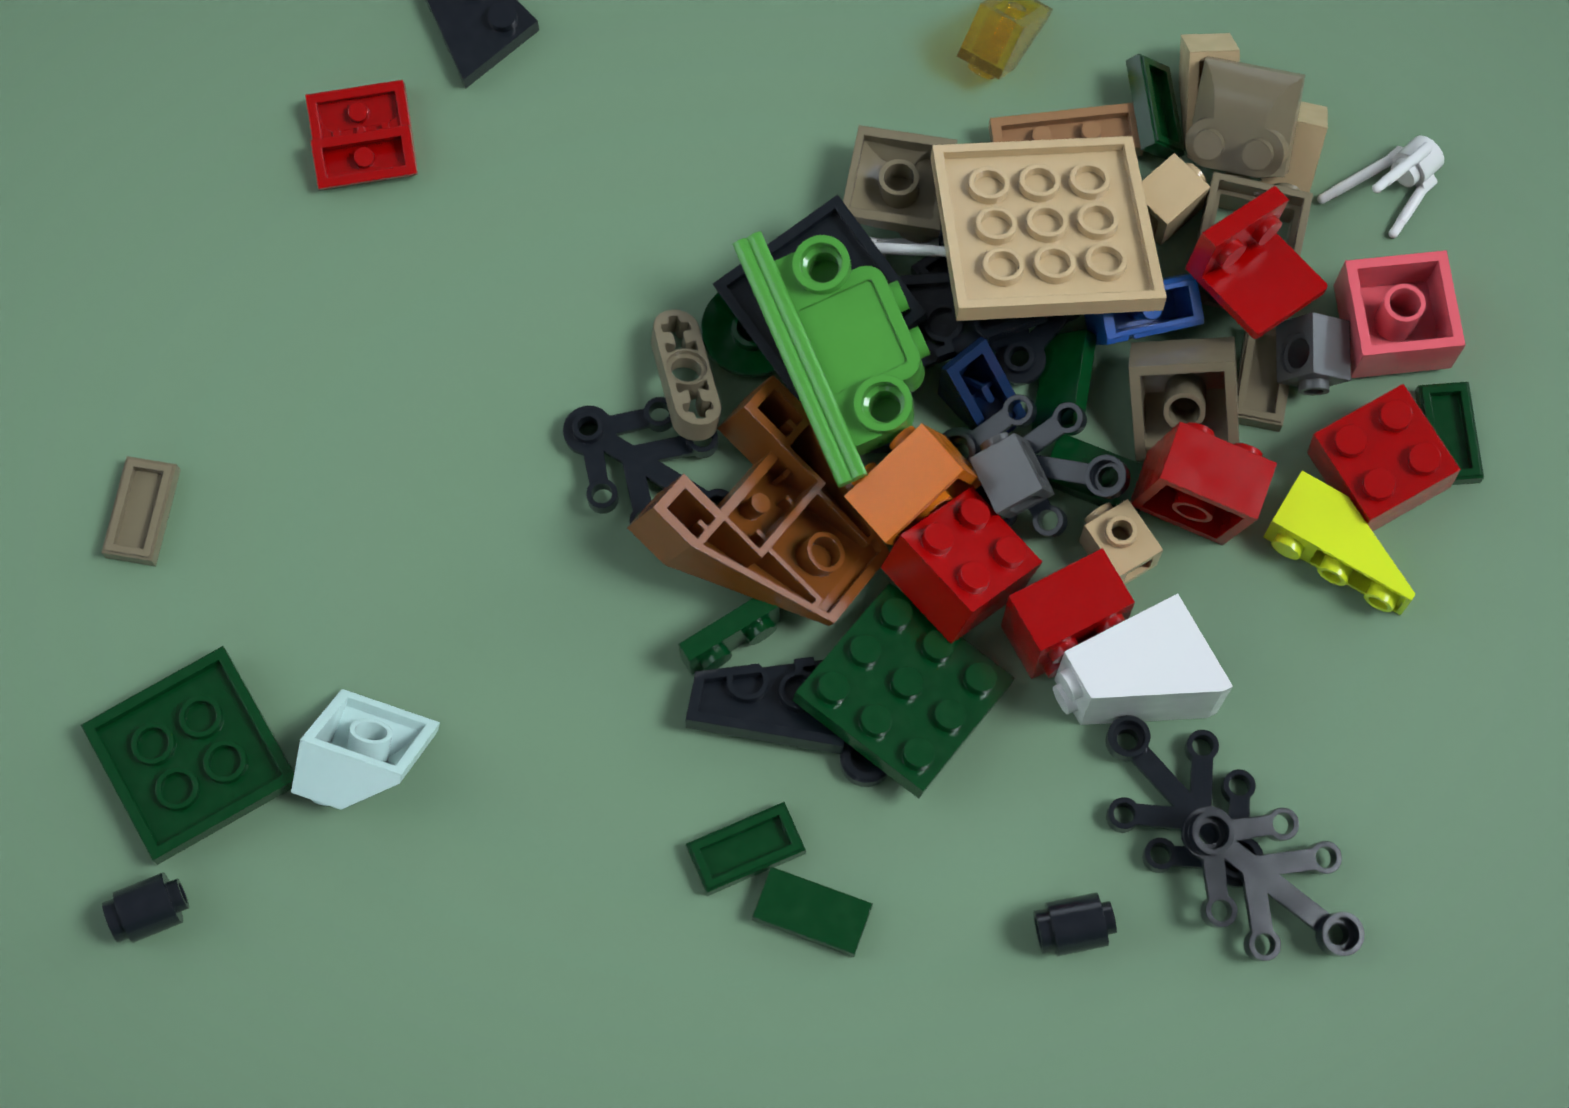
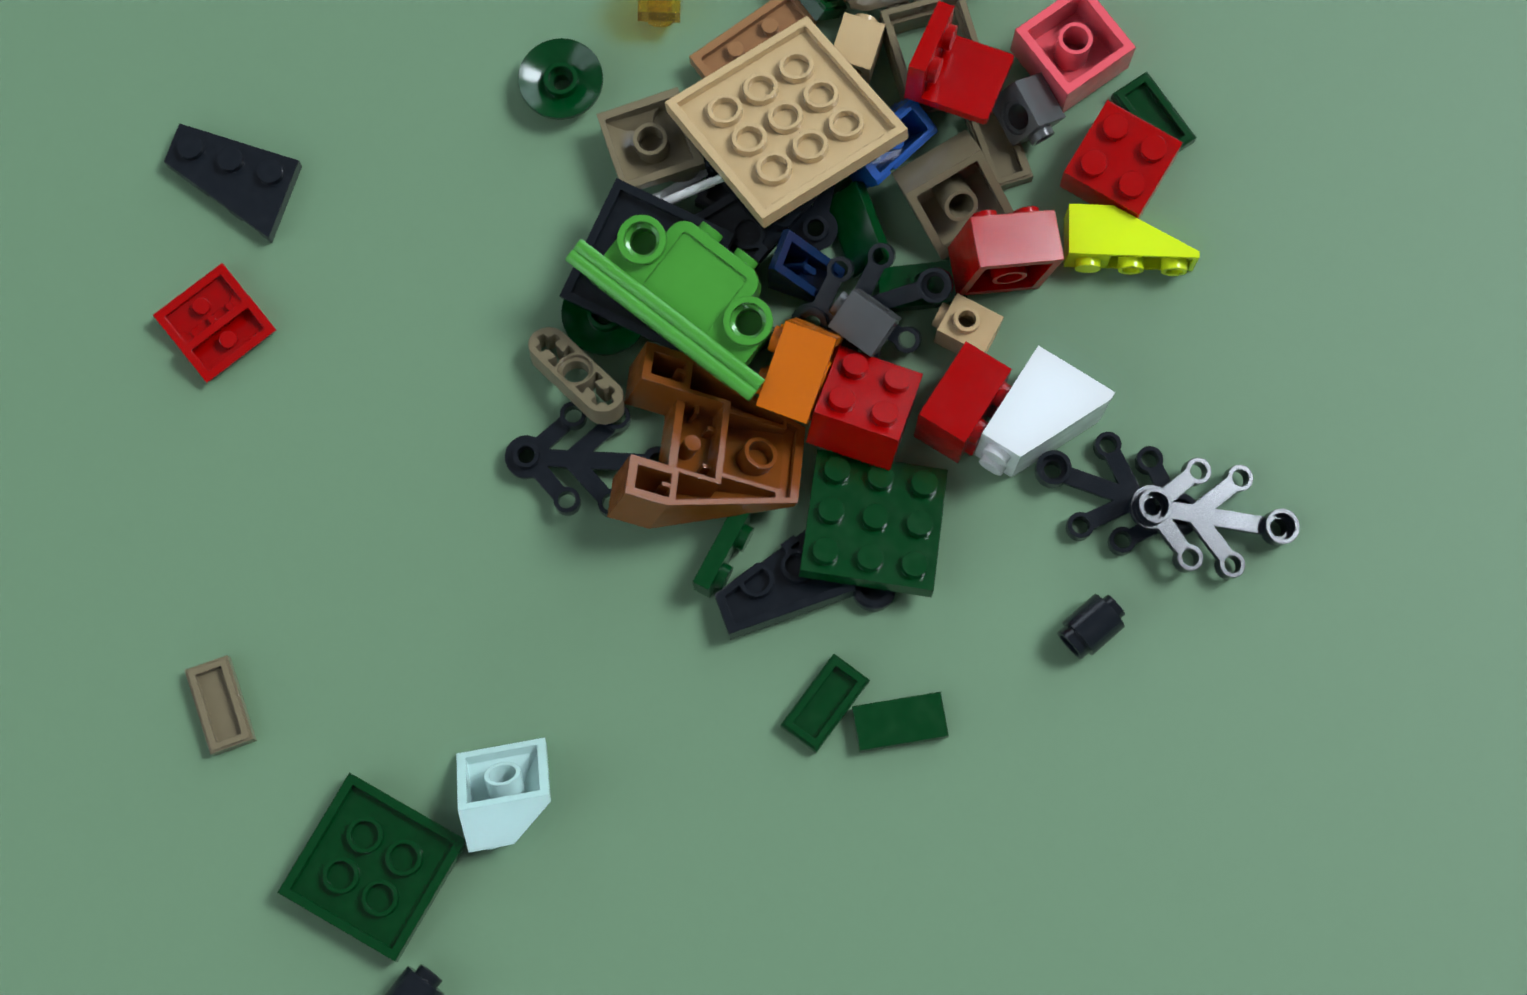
camera: 30 degrees left, 5 degrees up
(850, 56) = (559, 61): none -> dark green dish

